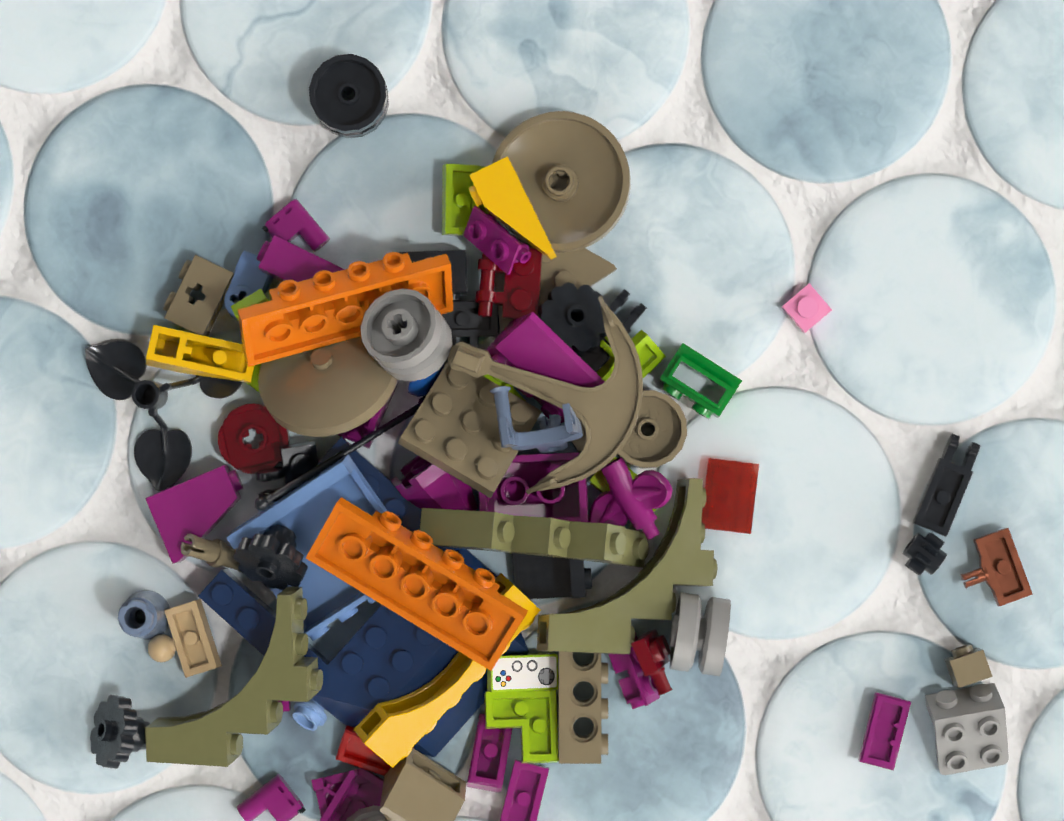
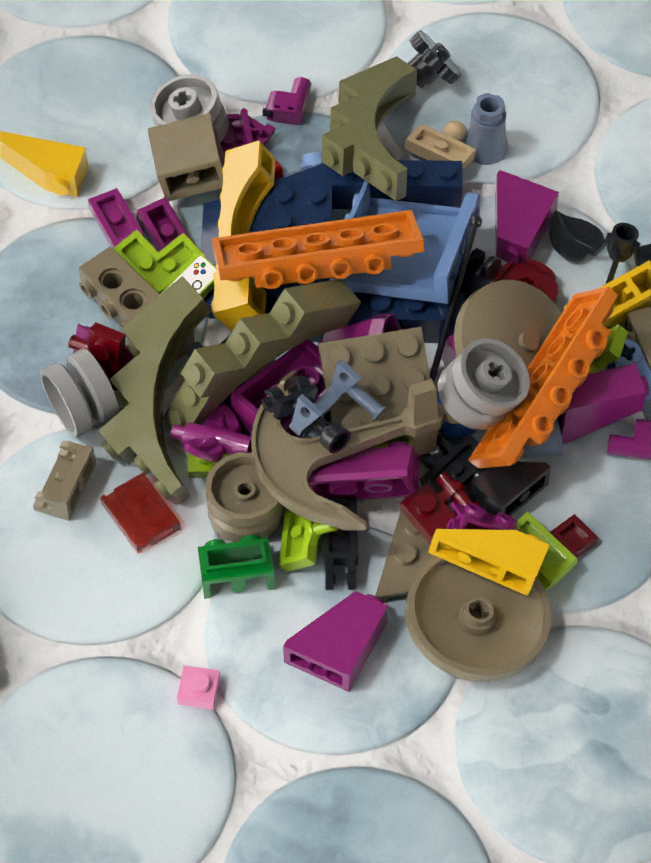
camera: 135 degrees right, 30 degrees down
(214, 552) = (487, 189): dark tan pin -> none
(272, 558) = (436, 205): black plant -> none
(424, 192) = (575, 536): none -> dark red tile
(543, 461) = (333, 436): none -> black bar
(574, 316) = (390, 533): black plant -> none
(675, 252) = (339, 640): none -> magenta slope
(766, 572) = (66, 480): none -> dark tan hinge

